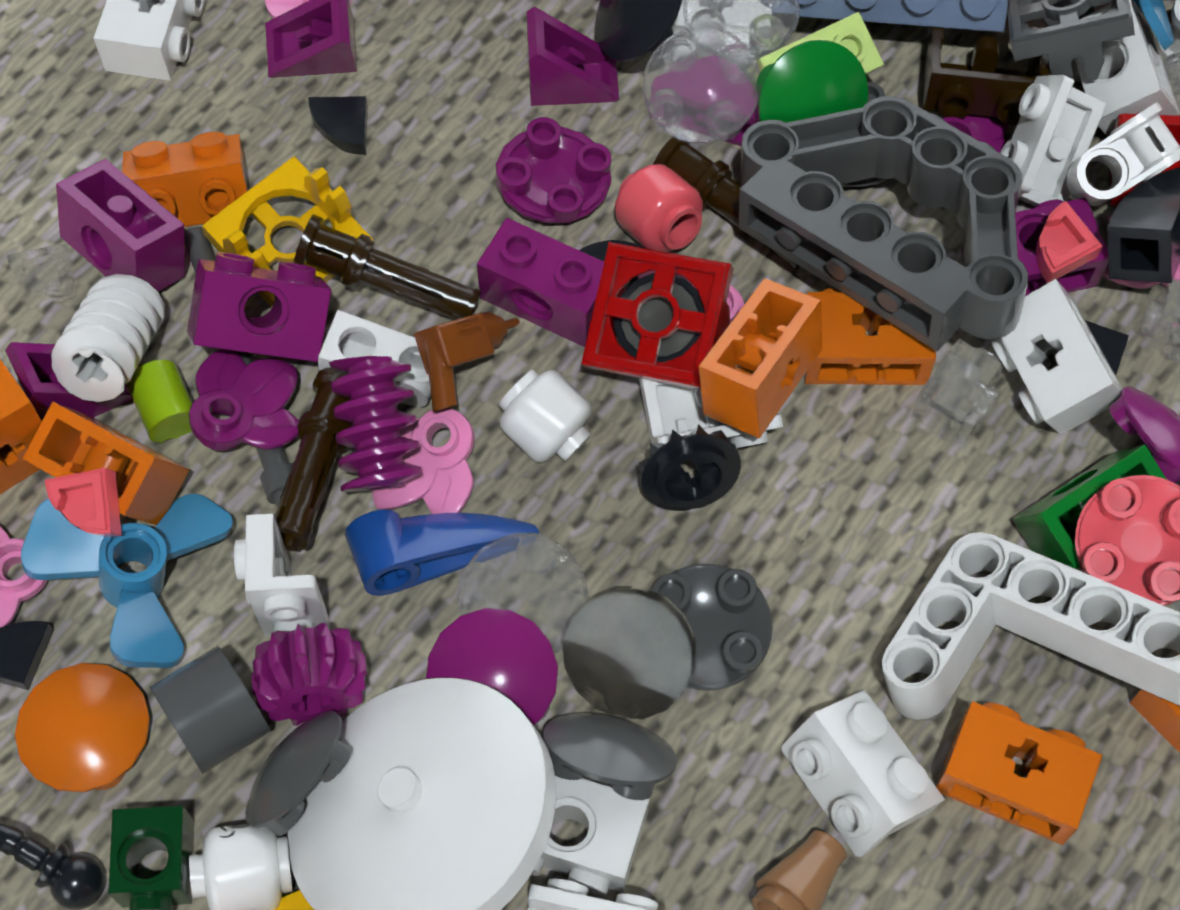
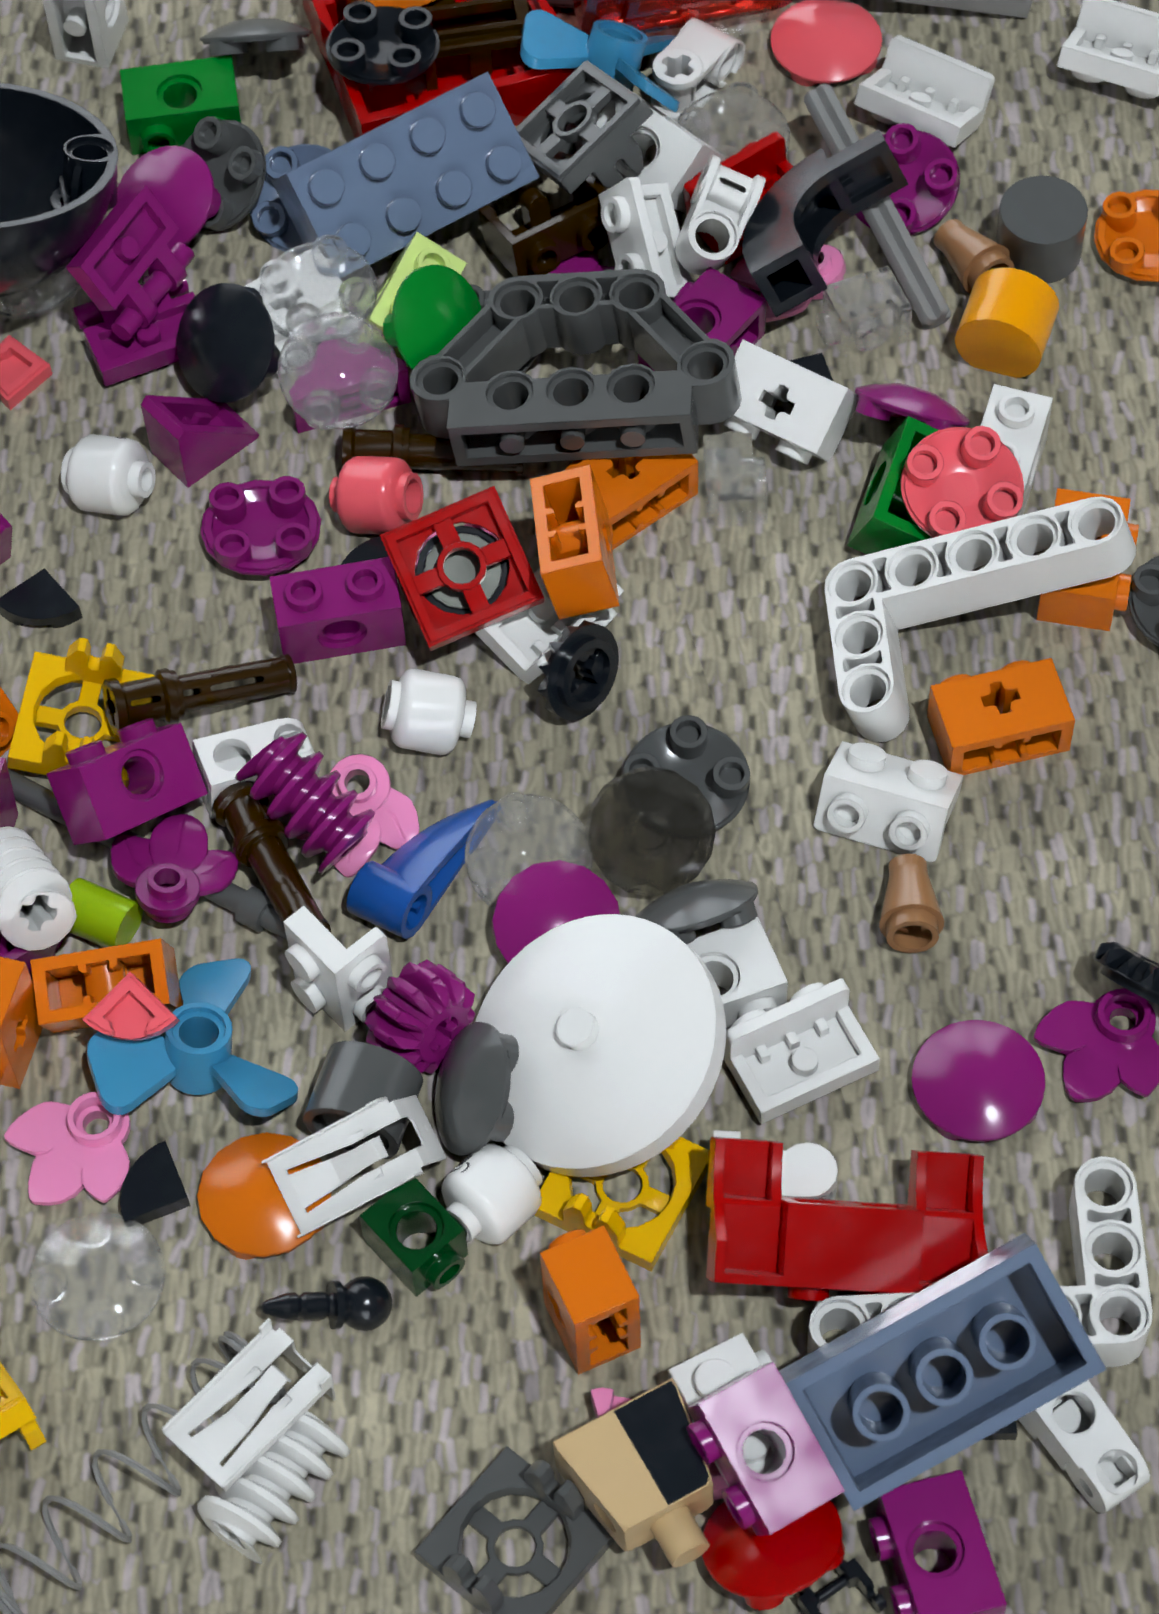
camera: 35 degrees left, 5 degrees down
(117, 752) = (317, 1181): none -> white piece
(456, 344) = (310, 706): dark orange piece -> none
(470, 52) = (107, 474): none -> white head
(1064, 243) = (724, 310): coral tile -> none

